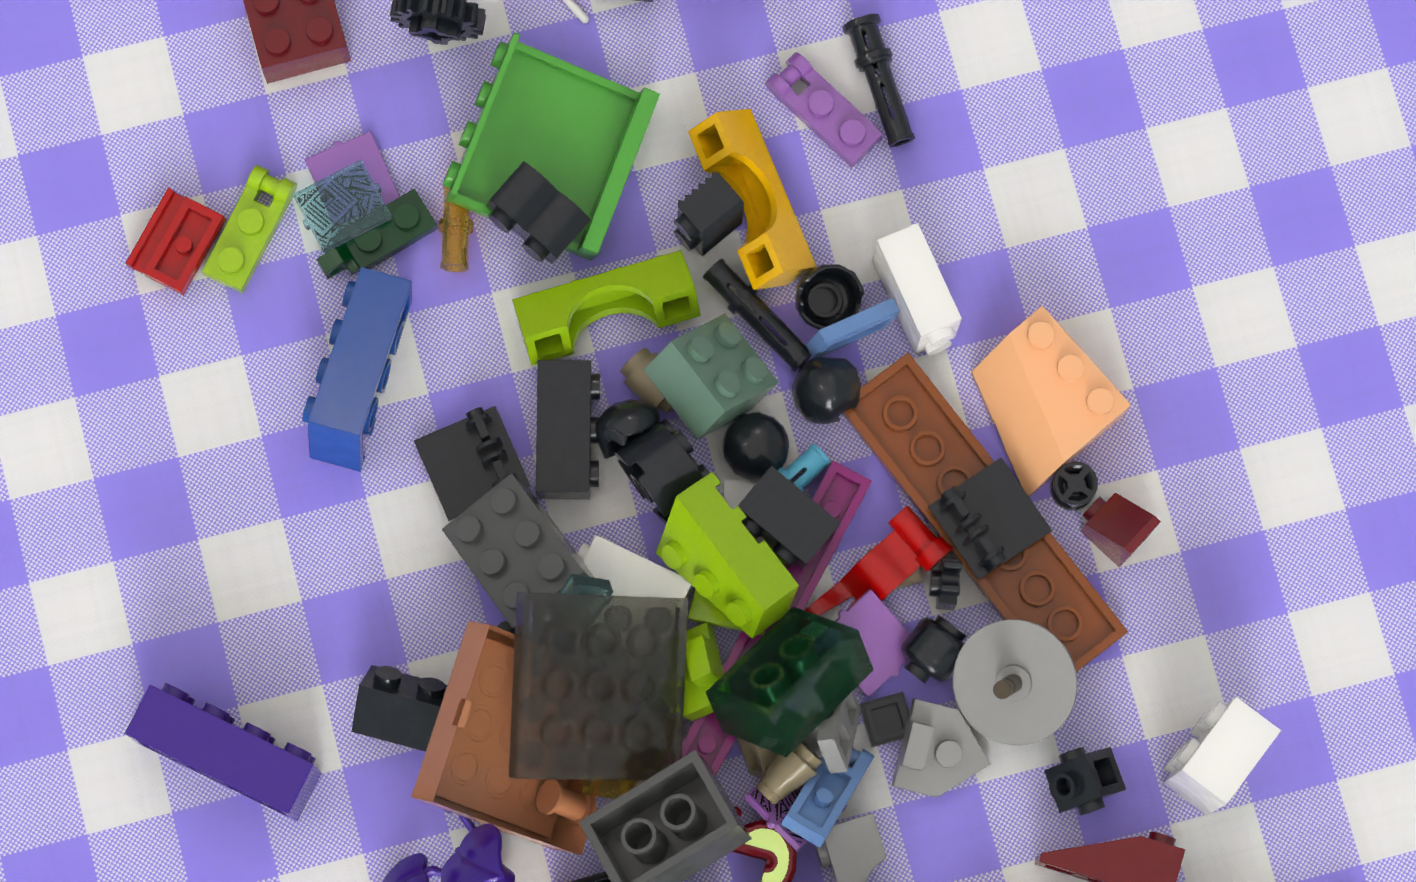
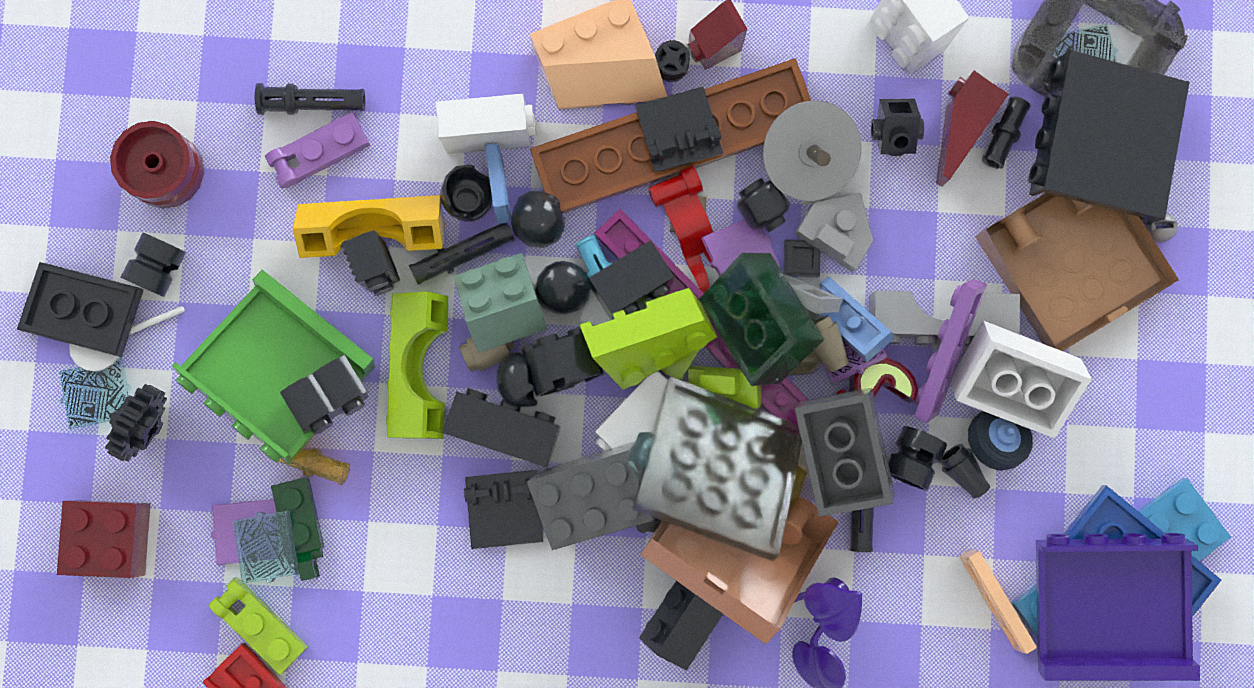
camera: 70 degrees left, 5 degrees up
(356, 367) = (398, 576): blue wedge -> none
(945, 584) = (717, 178): black plate -> none

